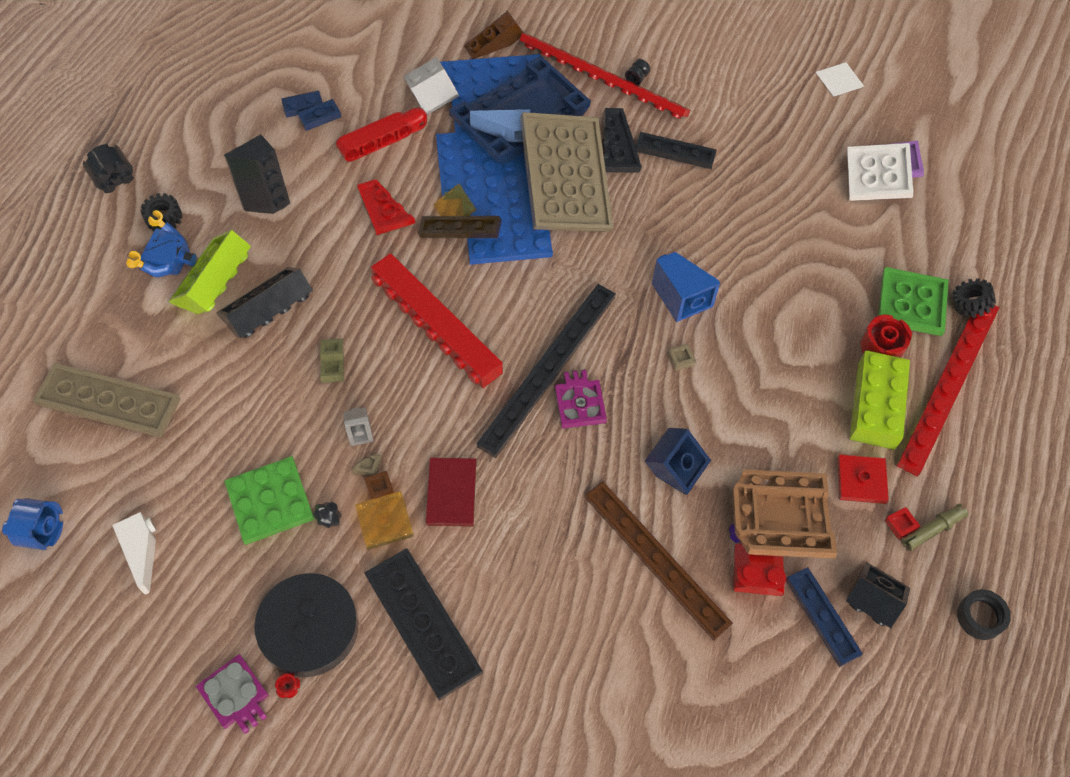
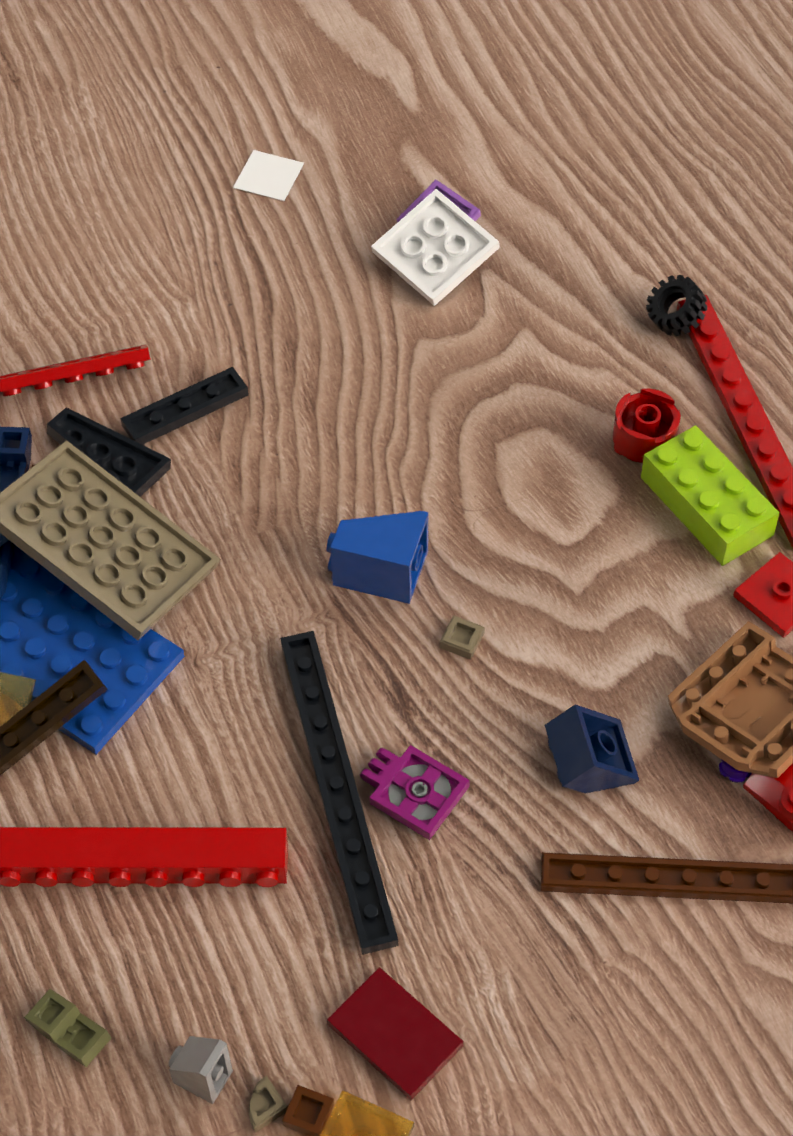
camera: 45 degrees left, 5 degrees down
(637, 71) = (32, 348): black wheel -> none
(914, 299) = (620, 359): bright green plate -> none

